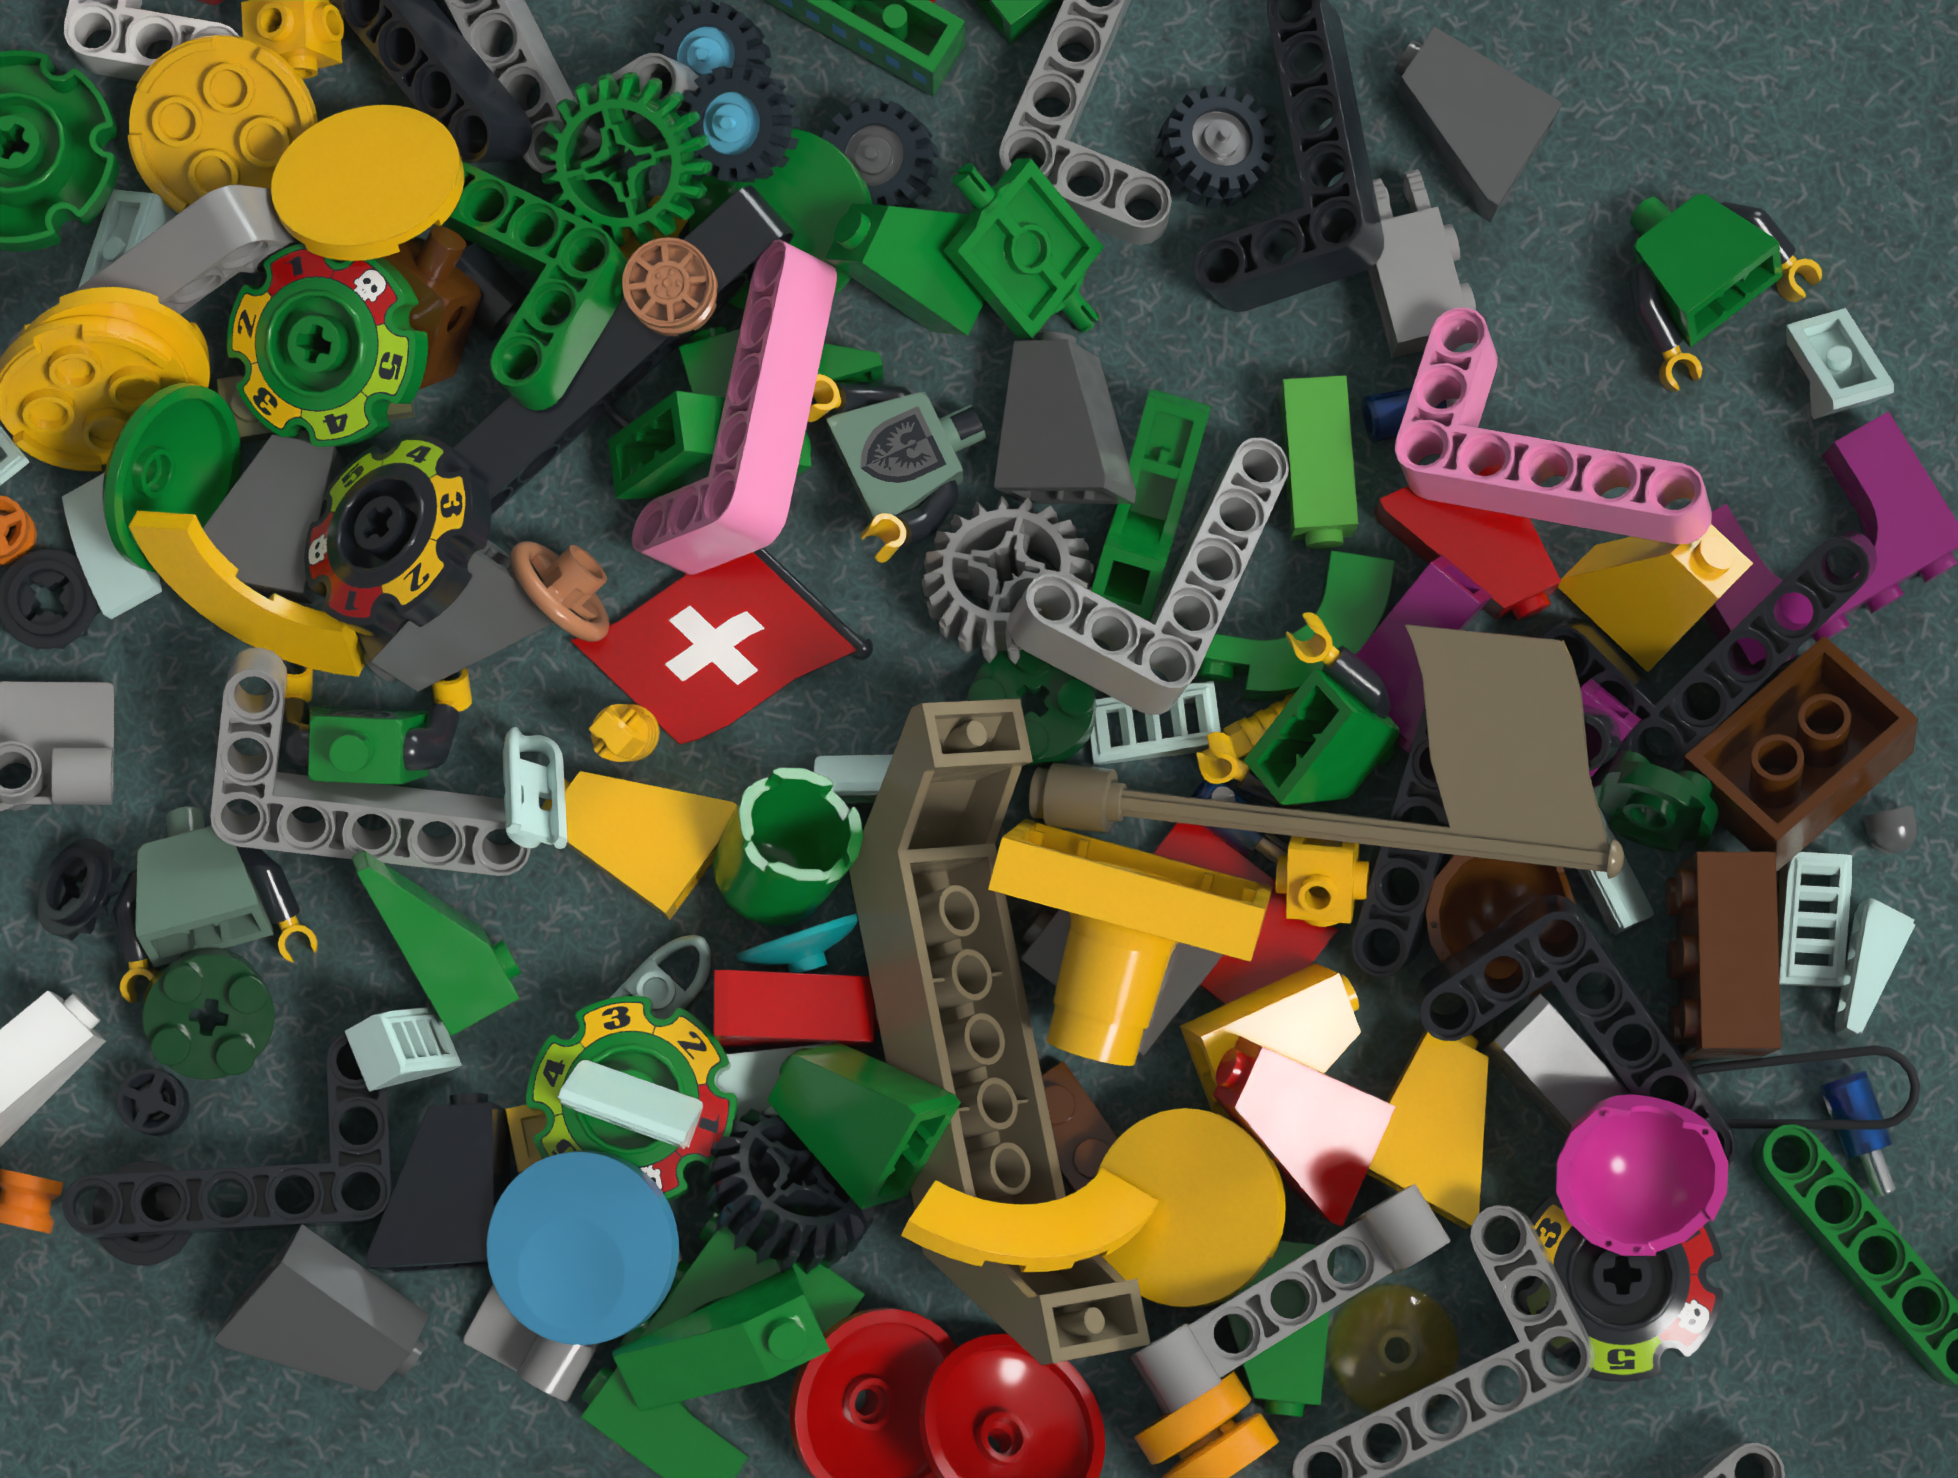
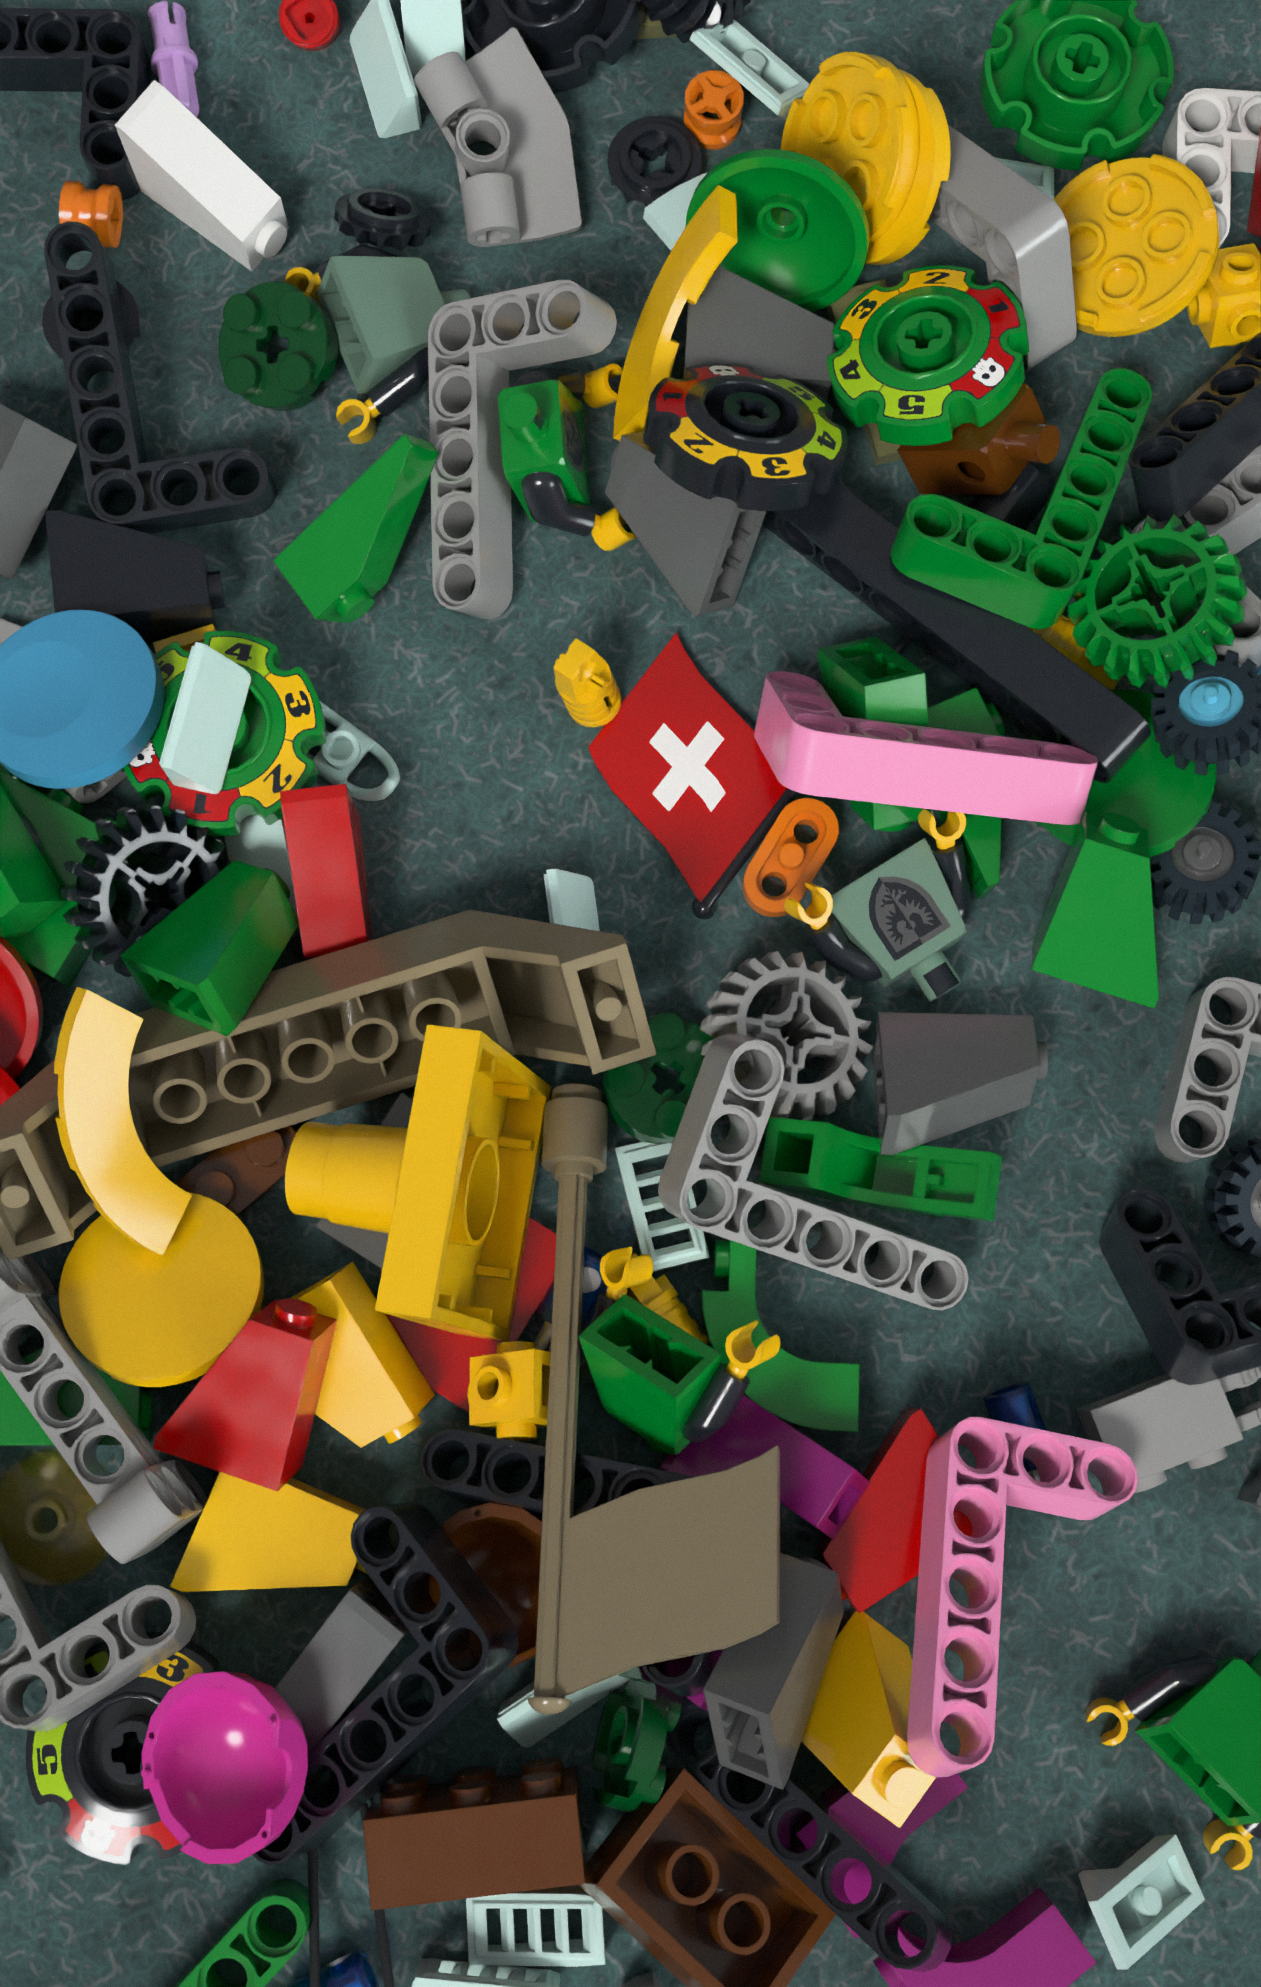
camera: 80 degrees right, 0 degrees up
(142, 1096) = (187, 298): black wheel -> none
(367, 181) = (1093, 362): yellow tile -> none
(402, 1047) = (238, 485): light aqua slope -> none
(524, 785) = (526, 599): light aqua piece -> none
(567, 584) = (728, 616): nougat piece -> none
(644, 835) = (488, 717): yellow slope -> none
(670, 286) = (1032, 659): nougat wheel -> none
(786, 847) = (485, 846): green cylinder -> none
(802, 949) = (389, 874): teal dish -> none
(825, 555) = (788, 858): none -> orange plate
(1024, 248) = (1129, 1011): green plate -> none
(1319, 460) = (955, 1342): bright green brick -> none
(1613, 662) = (768, 1683): none -> dark grey slope

